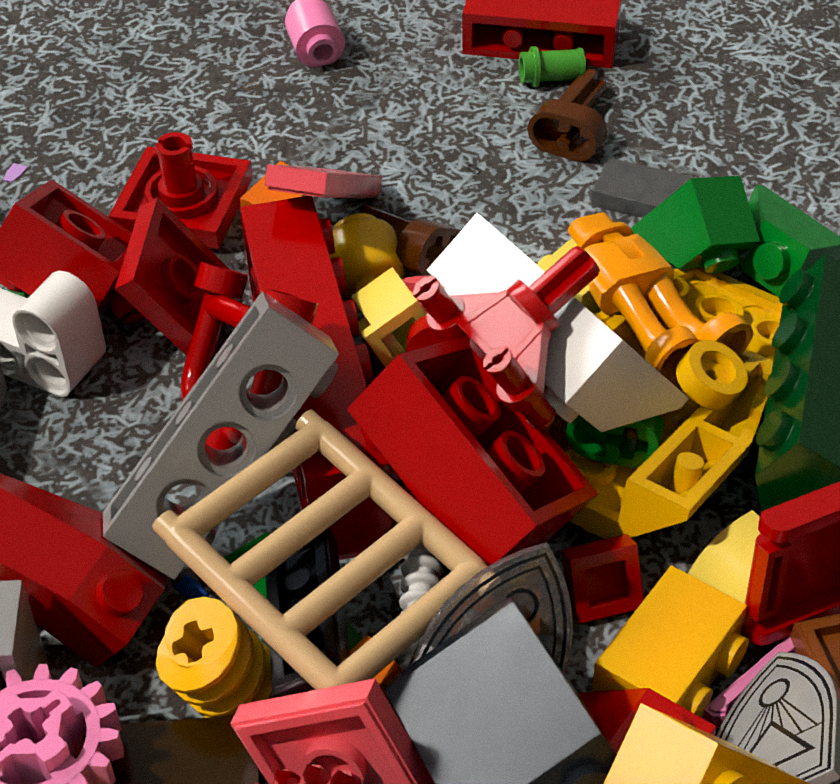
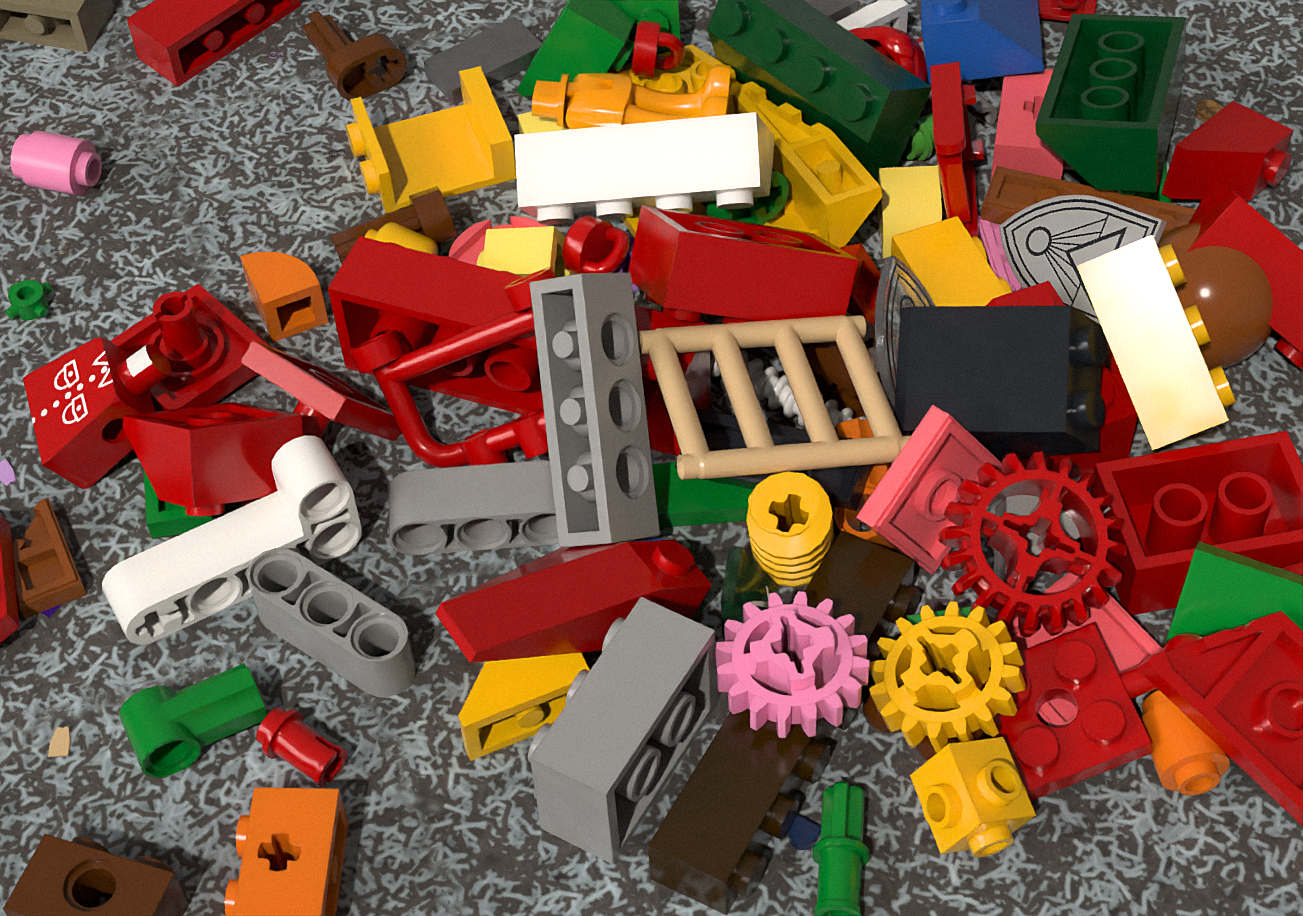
camera: 55 degrees left, 5 degrees up
(82, 158) = (82, 402): none -> red torso
(120, 426) = (472, 508): none -> light grey beam
(145, 693) = (744, 583): none -> clear green slope
(180, 94) = (28, 300): none -> green piece
(322, 182) = (326, 228): coral tile -> none
(512, 328) = (674, 168): red axle -> none
(518, 207) = (446, 149): none -> yellow panel
(550, 66) = (264, 44): bright green pin -> none
(711, 375) = (769, 107): yellow tile -> none
(739, 273) = (646, 47): none -> red tile

